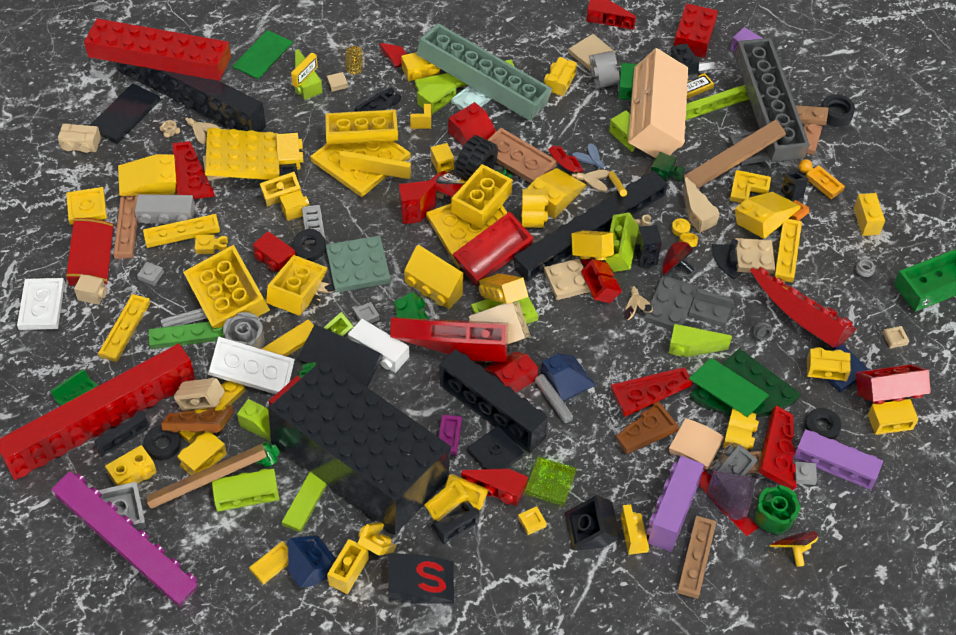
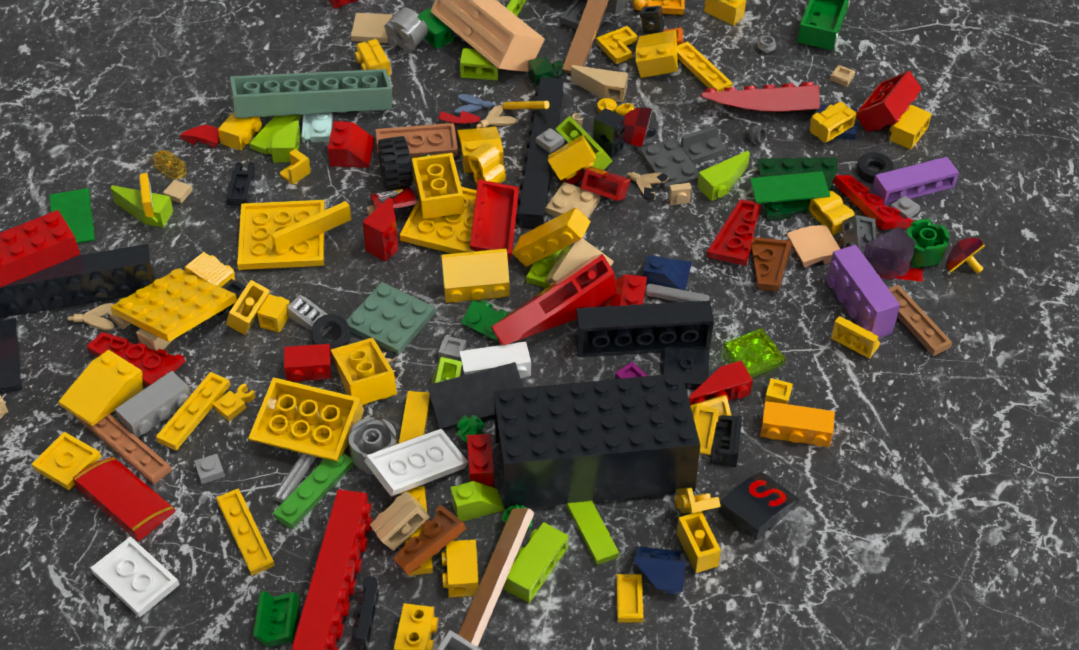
camera: 45 degrees left, 5 degrees down
(90, 289) = (171, 524): tan brick -> none
(164, 453) = (401, 579): black tyre -> none
(169, 128) = (63, 337): tan plate -> none
(361, 127) = (261, 205): yellow brick -> none
(442, 158) = (356, 185): yellow brick -> none
(514, 552) = (797, 424): none -> light orange brick
(592, 524) = (822, 358): black slope -> none
(597, 221) = (550, 140): none -> light grey plate
(646, 329) = (680, 193): none -> tan plate
(726, 257) = (668, 102): black shield -> none
(755, 254) = (682, 89): tan plate -> none

